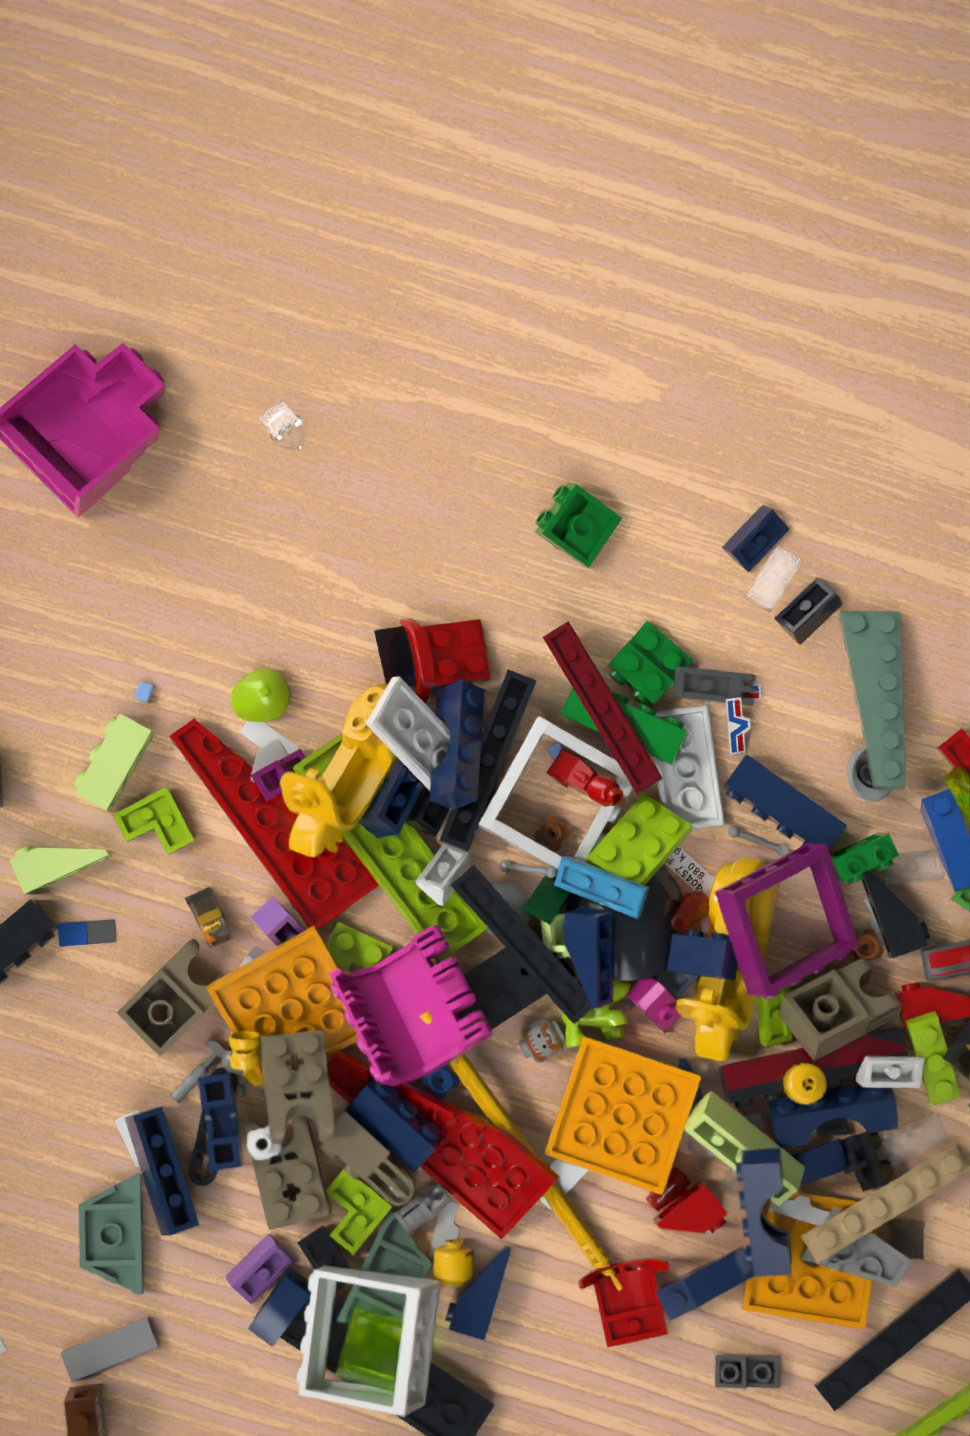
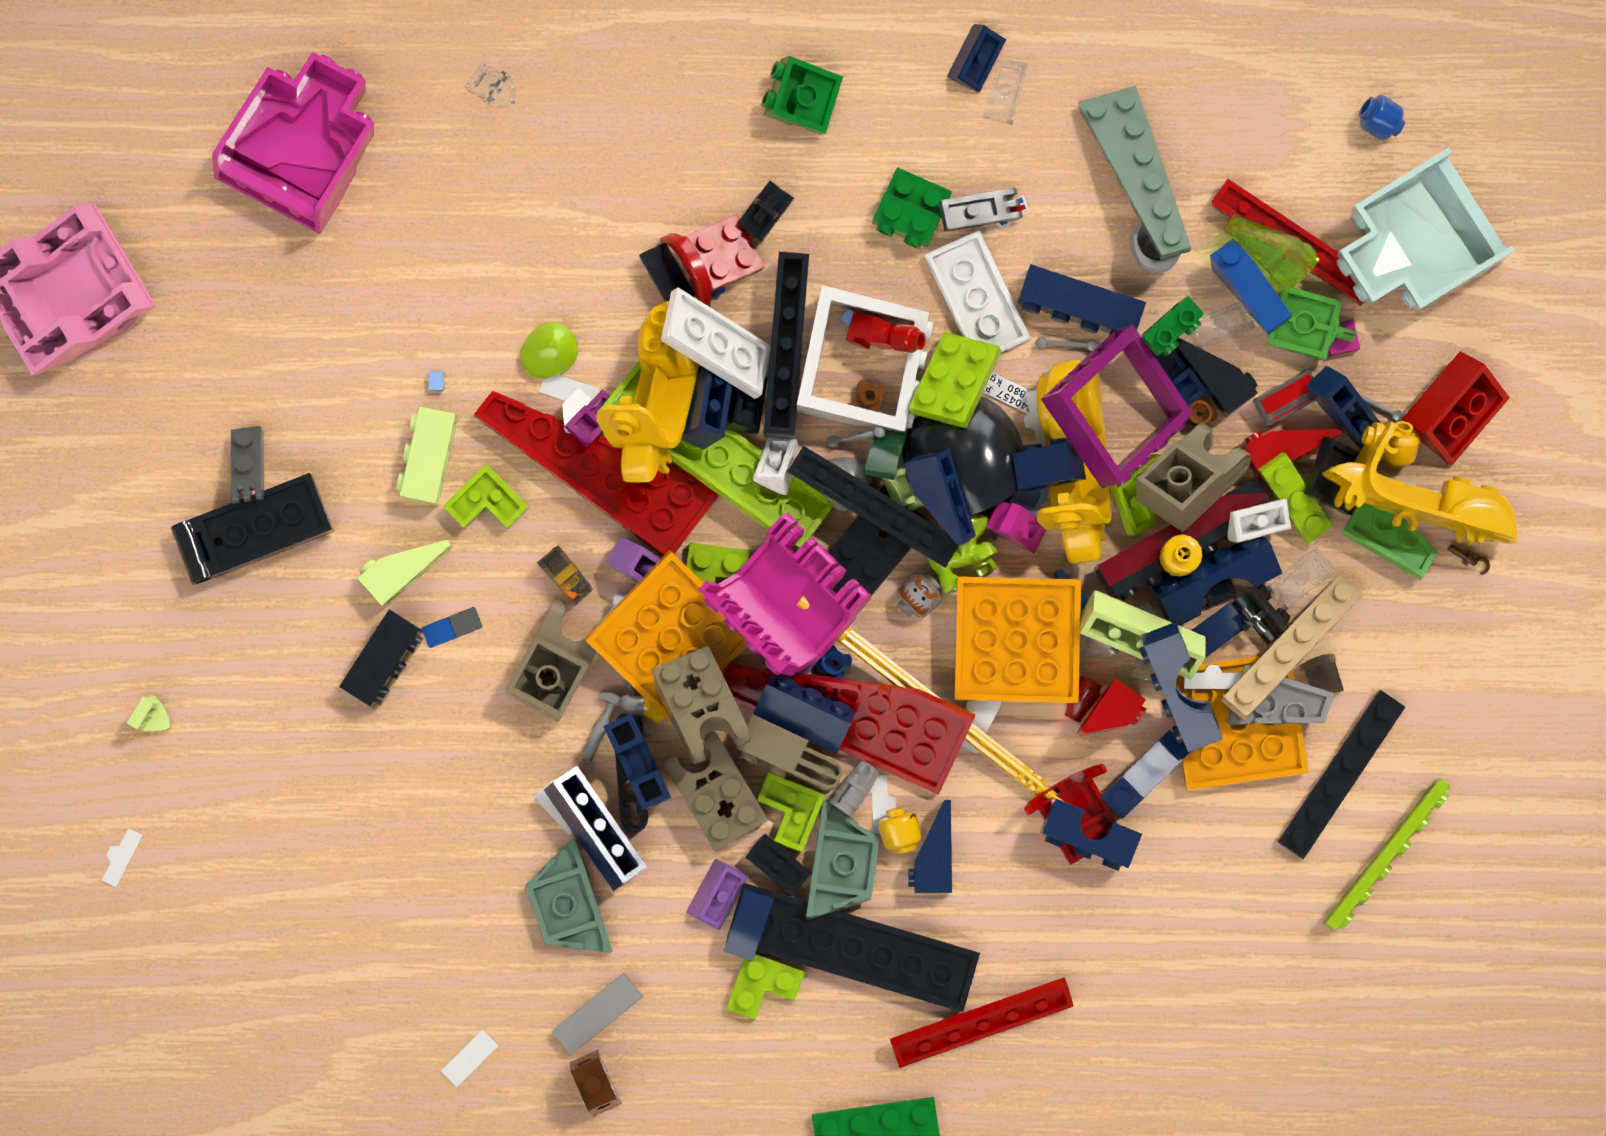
camera: 20 degrees left, 0 degrees up
(245, 1050) = (639, 687): yellow wheel -> none
(253, 1148) = (683, 781): white brick -> none
(267, 1365) = (762, 976): none -> lime plate
(371, 1350) = (851, 932): clear neon green slope -> none
(414, 1348) = (888, 917): white windscreen -> none
(457, 776) = (762, 365): dark blue arch -> none
(508, 625) = (765, 211): none -> black hips
(601, 886) = (931, 429): dark azure tile -> none
(602, 707) = (880, 260): dark red tile -> none
(655, 1345) = (1115, 846): none -> dark blue arch
(659, 737) = (905, 270): green brick -> none
(690, 911) = (1023, 427): clear red cone -> none
(736, 725) = (1013, 241): sticker -> none
(747, 1371) = (1210, 847): dark grey slope -> none
(809, 610) = (1048, 111): black slope -> none
(859, 908) = (1182, 377): none -> dark blue slope

